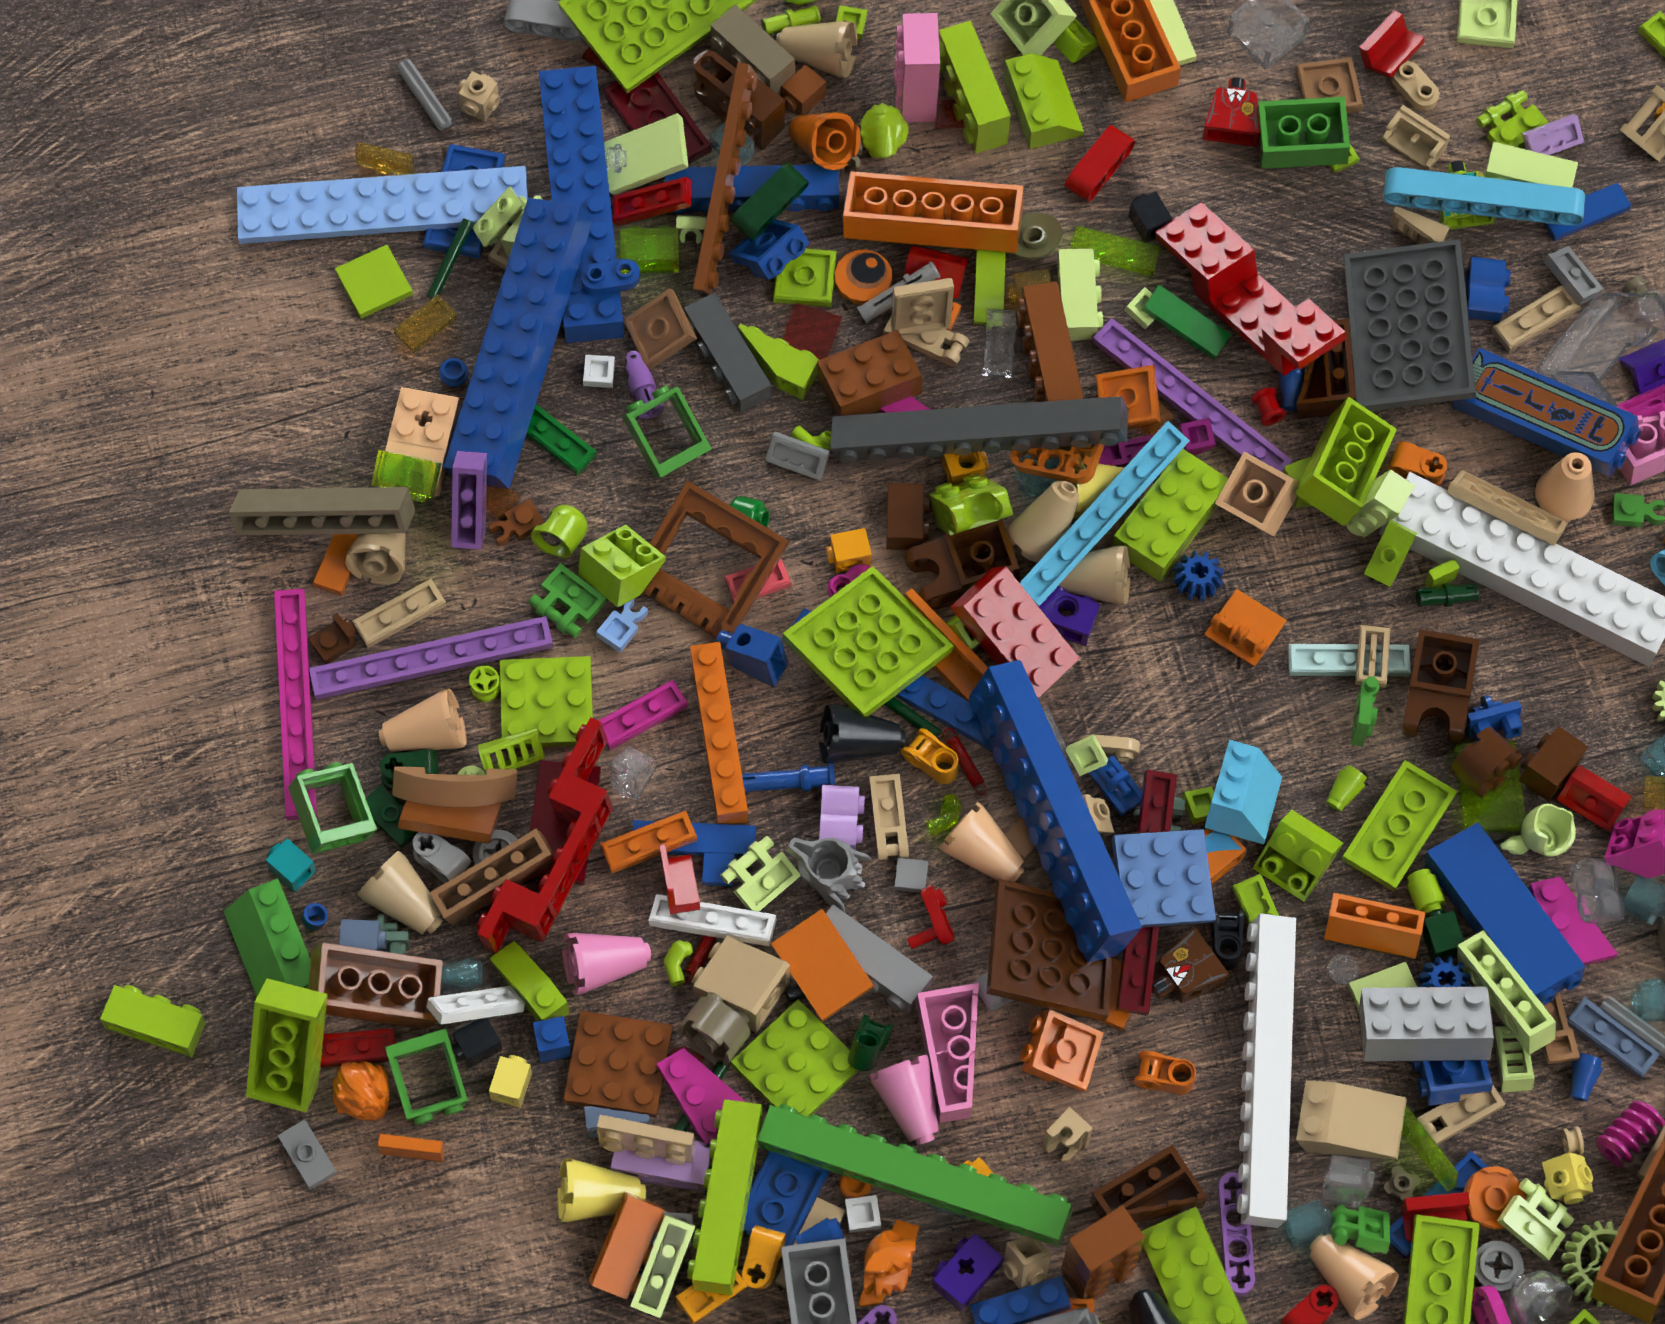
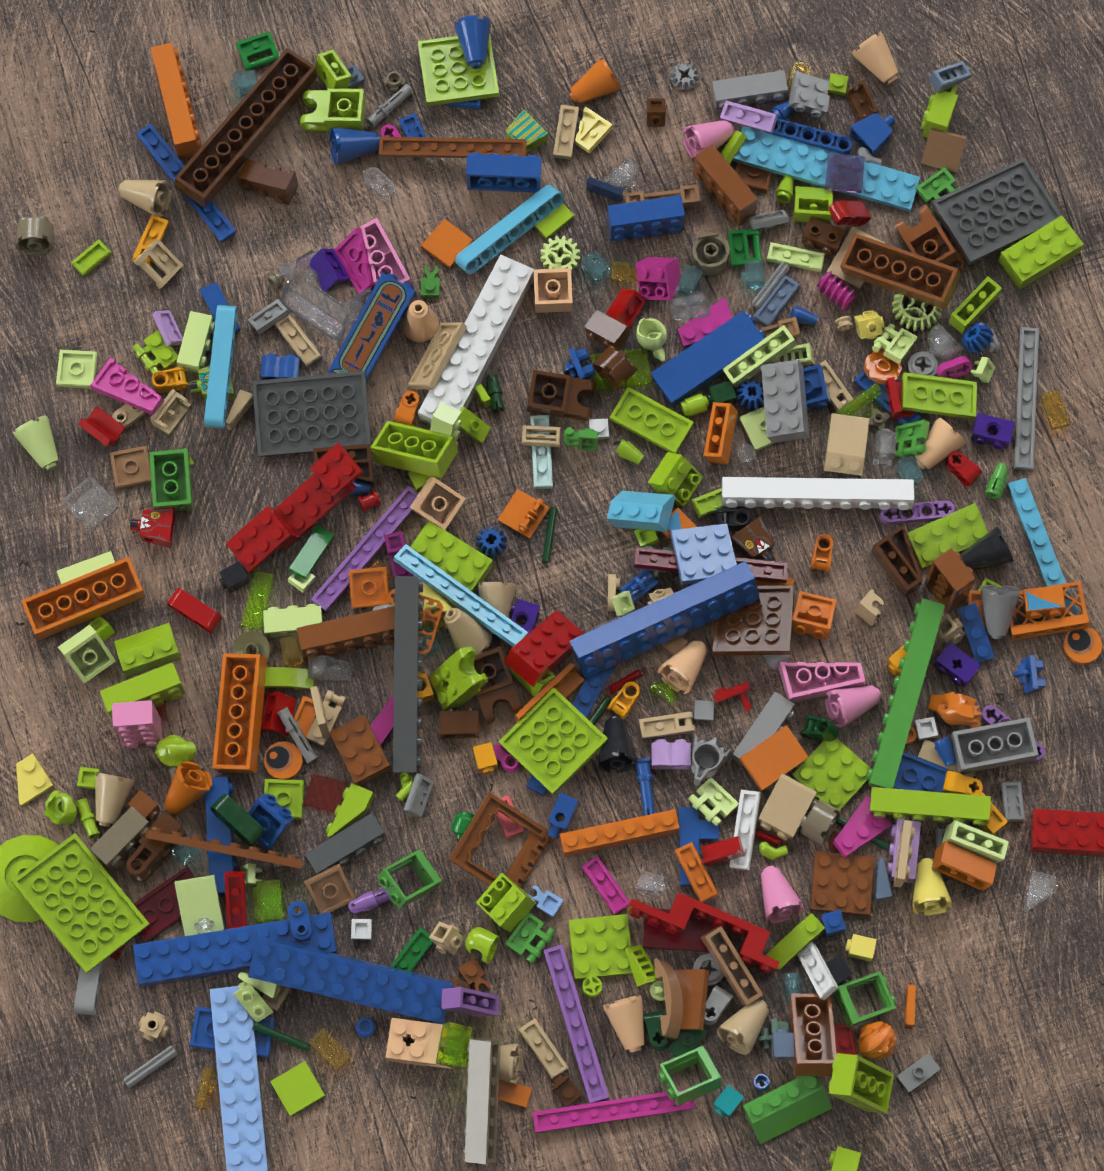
camera: 90 degrees left, 5 degrees up
(573, 481) = (446, 938): none -> tan brick
(1209, 664) = (549, 535): none -> dark green bar
(1387, 747) = (601, 426): none -> white plate
(1454, 75) = (122, 386): none -> dark pink wing
(1468, 142) = (171, 380): none -> light orange piece
(1622, 684) = (553, 290): none -> light nougat brick

